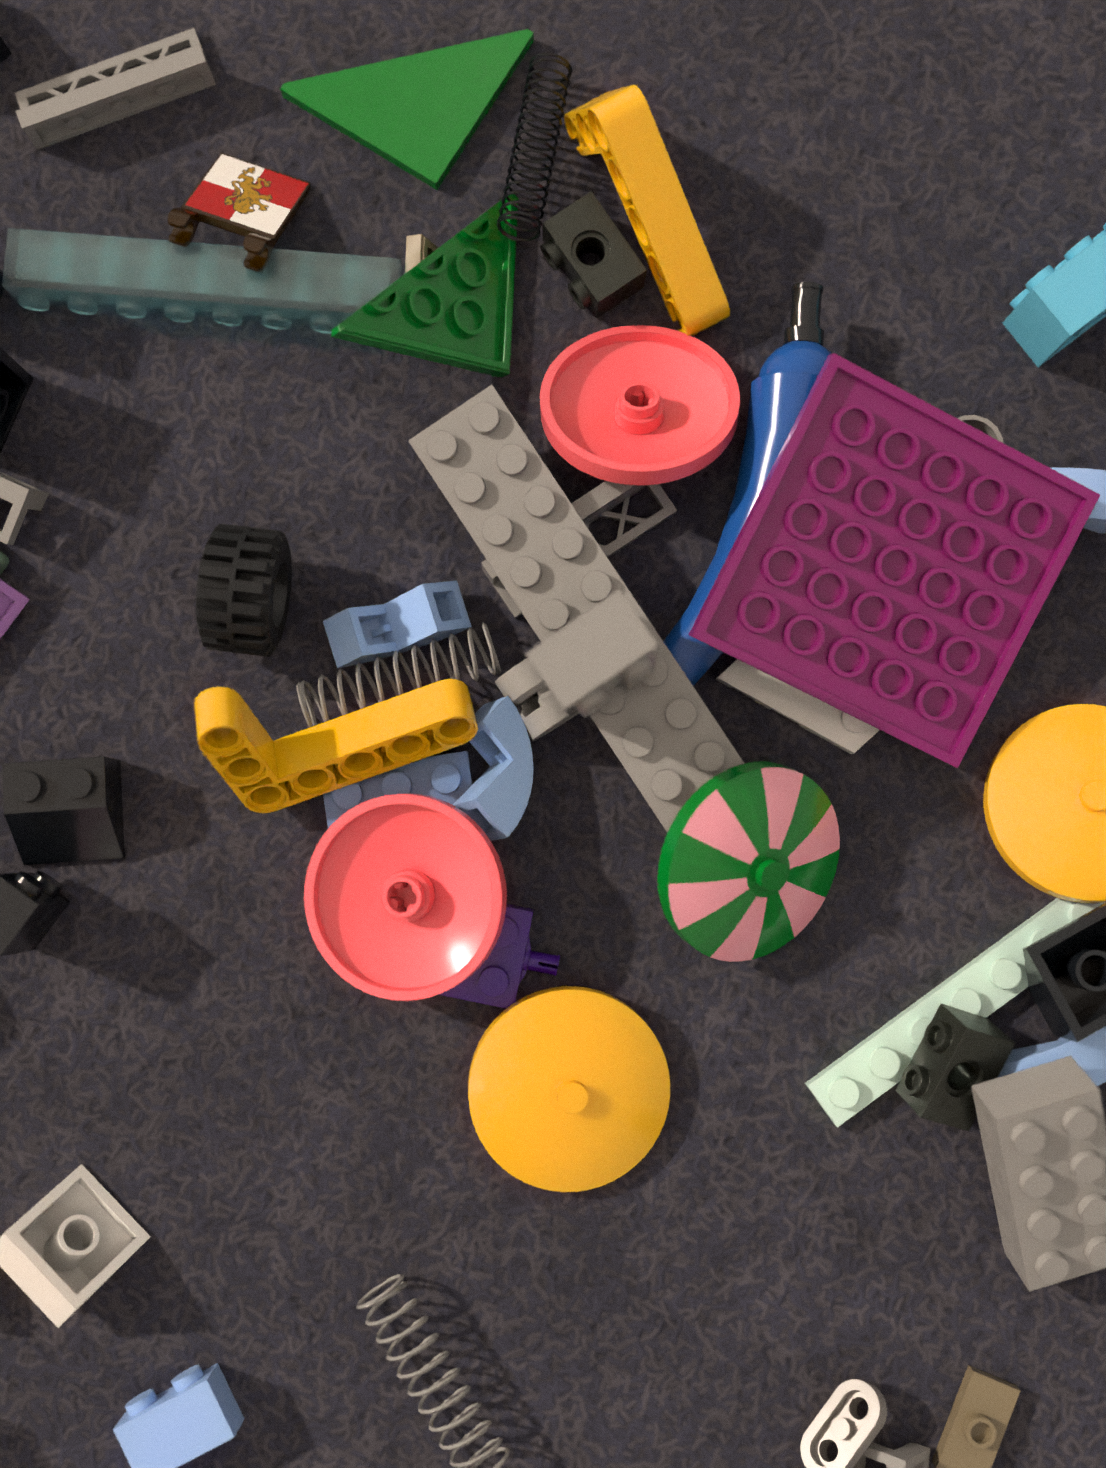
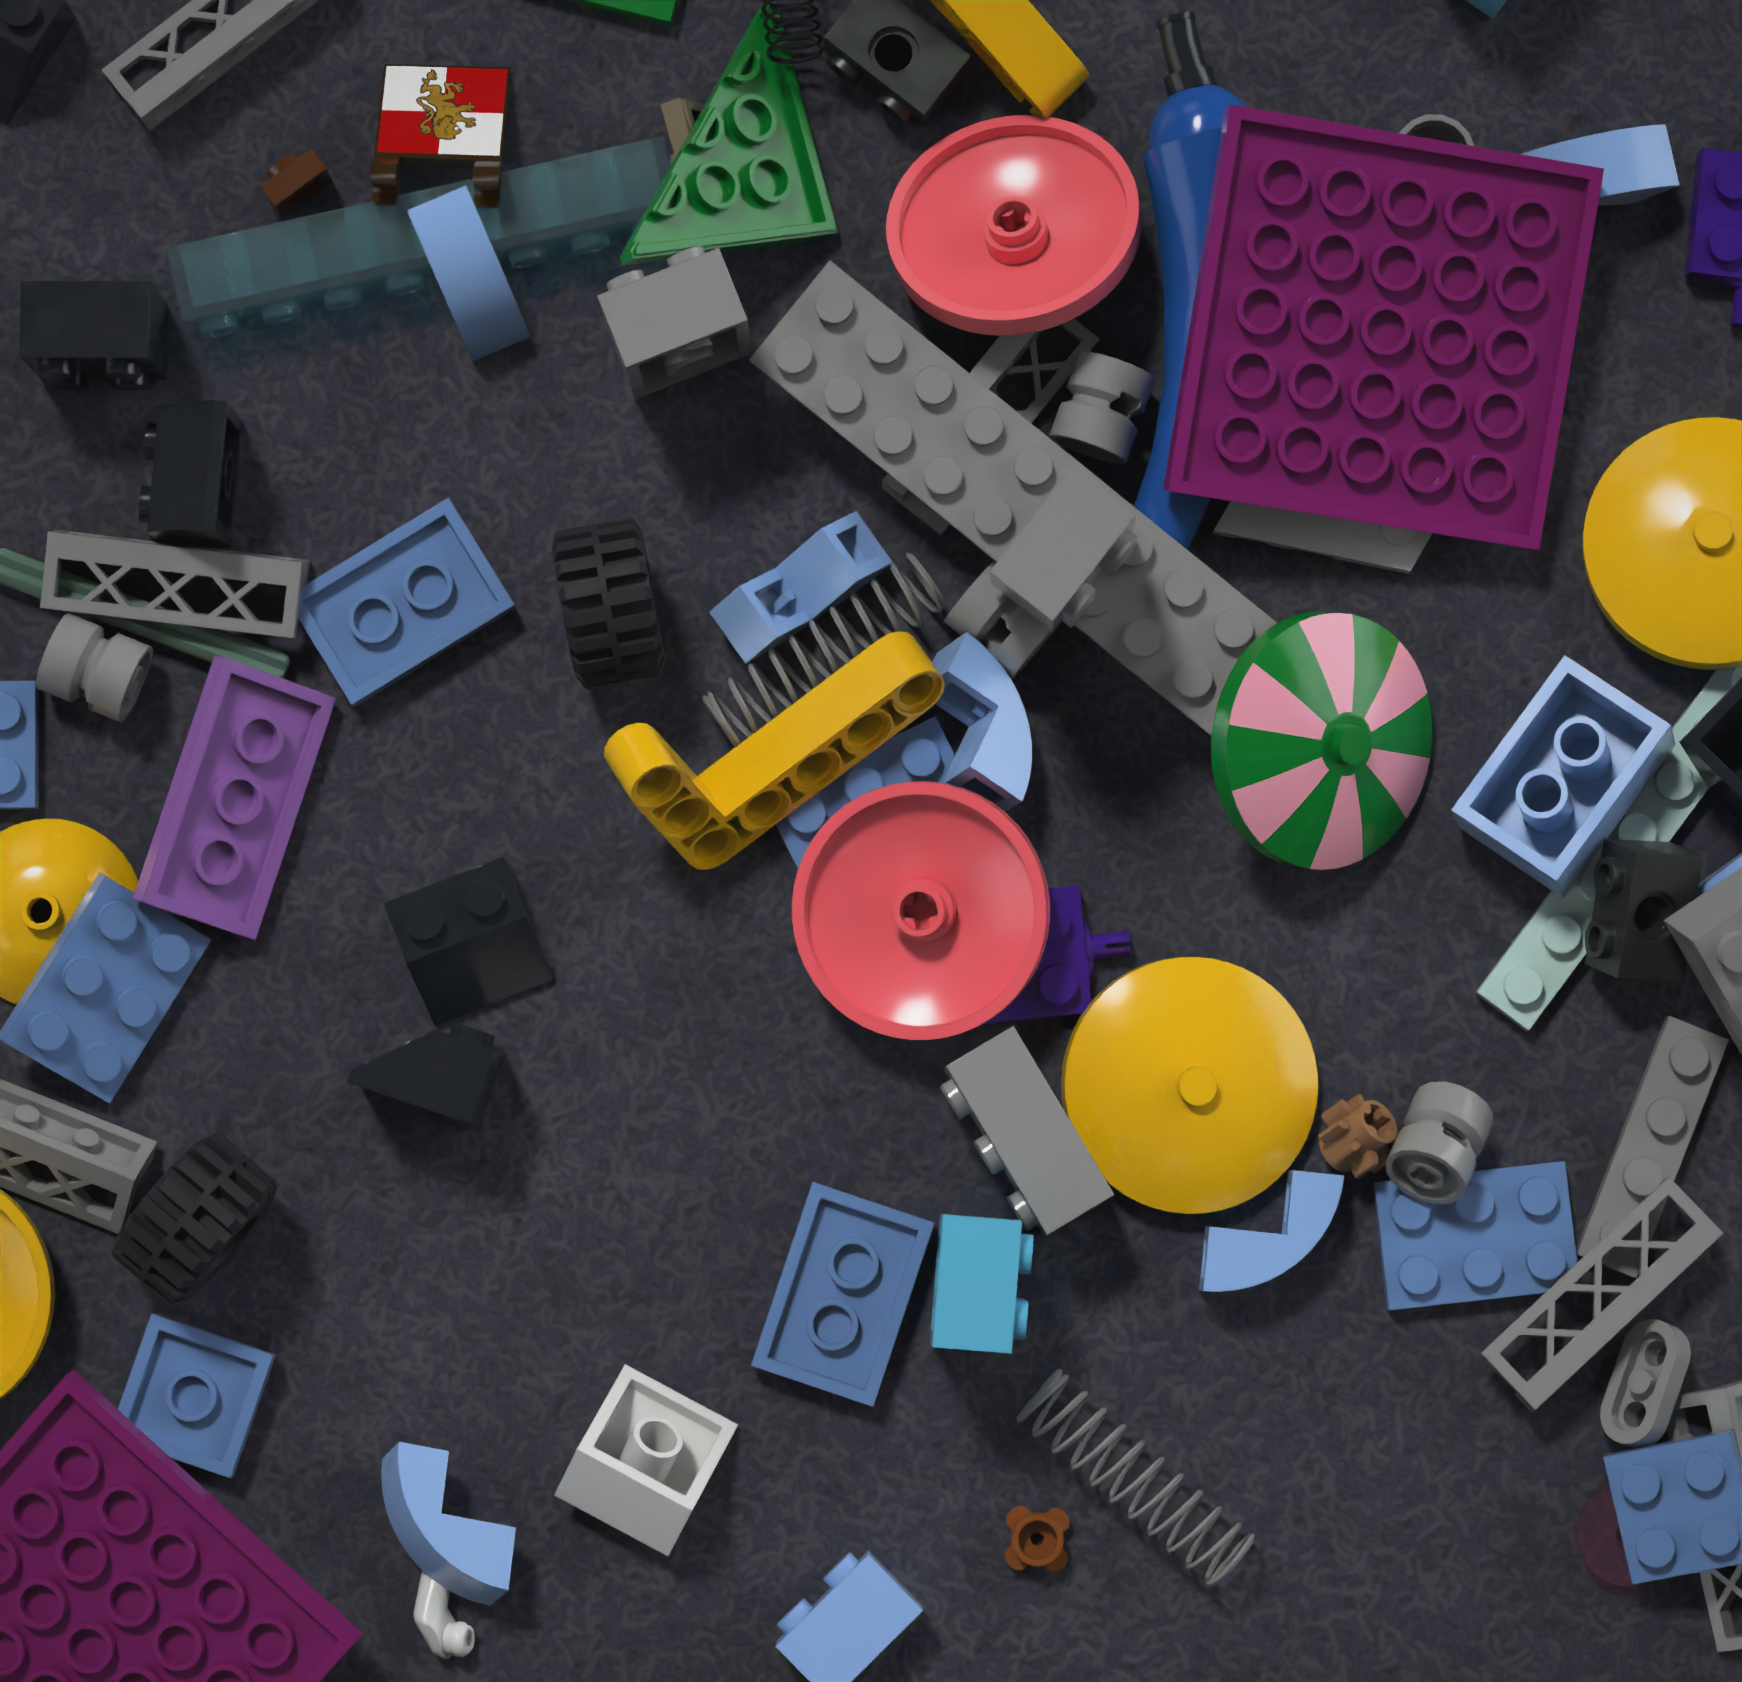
camera: 15 degrees left, 0 degrees up
(100, 544) = (402, 602): none -> medium blue plate
(124, 213) = (295, 181): none -> reddish brown plate
(221, 314) = (468, 273): none -> light blue brick
(257, 1165) = (842, 1294): none -> medium blue plate
(342, 1412) = (1050, 1551): none -> dark orange plate
(352, 1205) = (978, 1284): none -> medium azure brick
(358, 392) = (675, 321): none -> light grey brick
(429, 1094) = (1025, 1133): none -> light grey brick
(575, 1237) = (1247, 1258): none -> light blue brick
(666, 555) = (1102, 407): none -> light grey wheel
(683, 1169) = (1357, 1135): none -> medium nougat gear
(744, 1197) = (1439, 1142): none -> light grey wheel
(749, 1270) = (1497, 1241): none -> medium blue plate
(838, 1366) = (1616, 1314): none -> light grey fence
(902, 1245) = (1654, 1135): none -> light grey plate
(925, 945) = (1564, 776): none -> light blue brick

